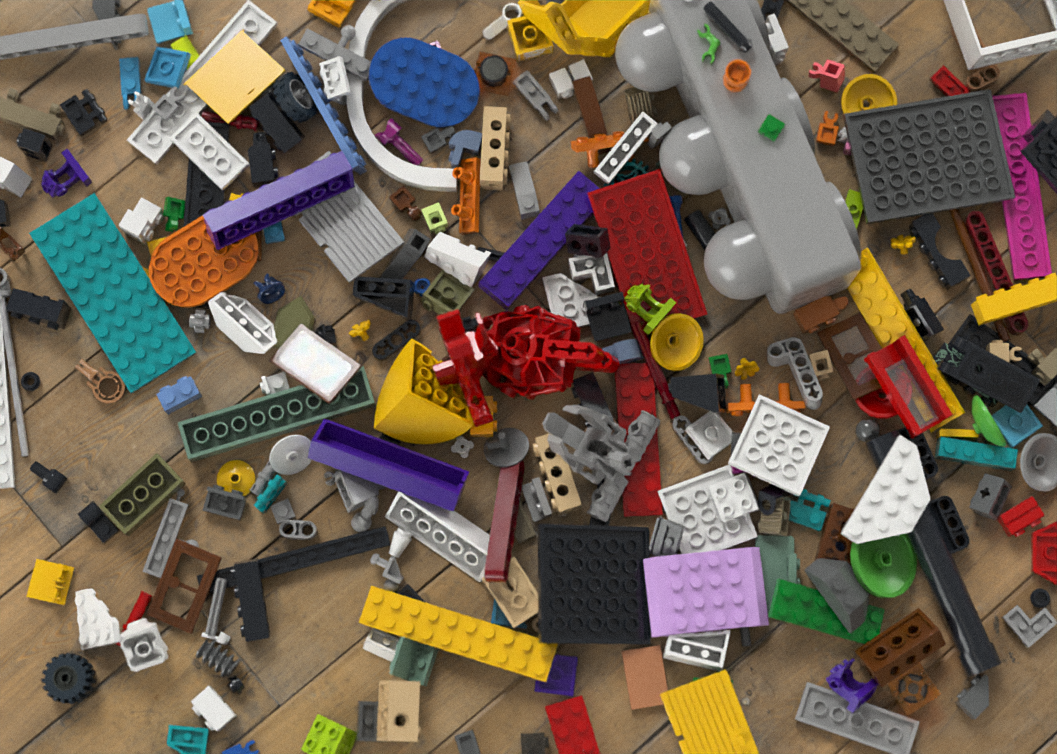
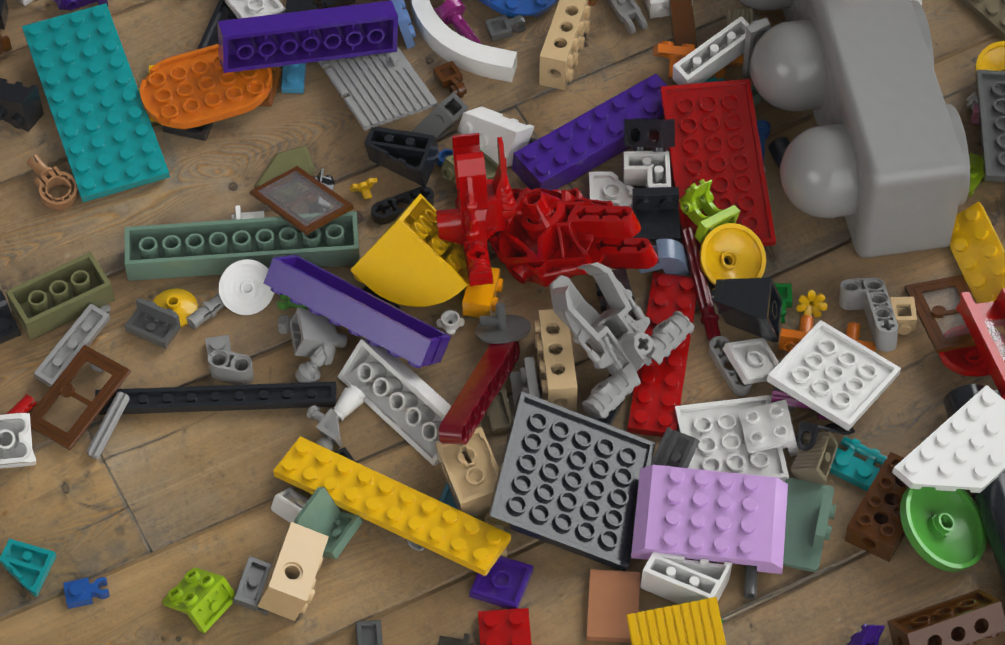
camera: 15 degrees right, 25 degrees down
(142, 221) = (148, 42): white brick -> none
(174, 210) = (188, 39): green plate -> none
(178, 395) = (136, 209): medium blue brick -> none
(199, 321) = (183, 145): light grey gear -> none
(213, 709) = (68, 532): white piece -> none
(217, 658) = (91, 478): dark grey piece -> none
(222, 638) = (103, 464): white hand -> none
(235, 685) = (103, 513): black plate -> none
(242, 323) = (228, 152): white wedge -> none
(252, 600) = (152, 423): black brick -> none
(270, 290) = (273, 135): dark blue piece -> none
(270, 494) = (209, 321): teal plate -> none
(435, 212) = (479, 98): yellowish green brick -> none
(464, 142) = (529, 34): sand blue brick -> none
(469, 195) = (523, 89): orange plate -> none
(524, 190) = (588, 88): light grey slope -> none
(771, 127) = (884, 20): green plate -> none
(809, 609) = (857, 567): green plate -> none
(819, 312) = (912, 263): dark orange hinge -> none
(827, 131) = (956, 92): orange plate -> none
(830, 75) = (968, 40): coral brick -> none
(840, 590) = (882, 543): dark grey wedge -> none
(867, 430) = (944, 386): dark grey piece -> none

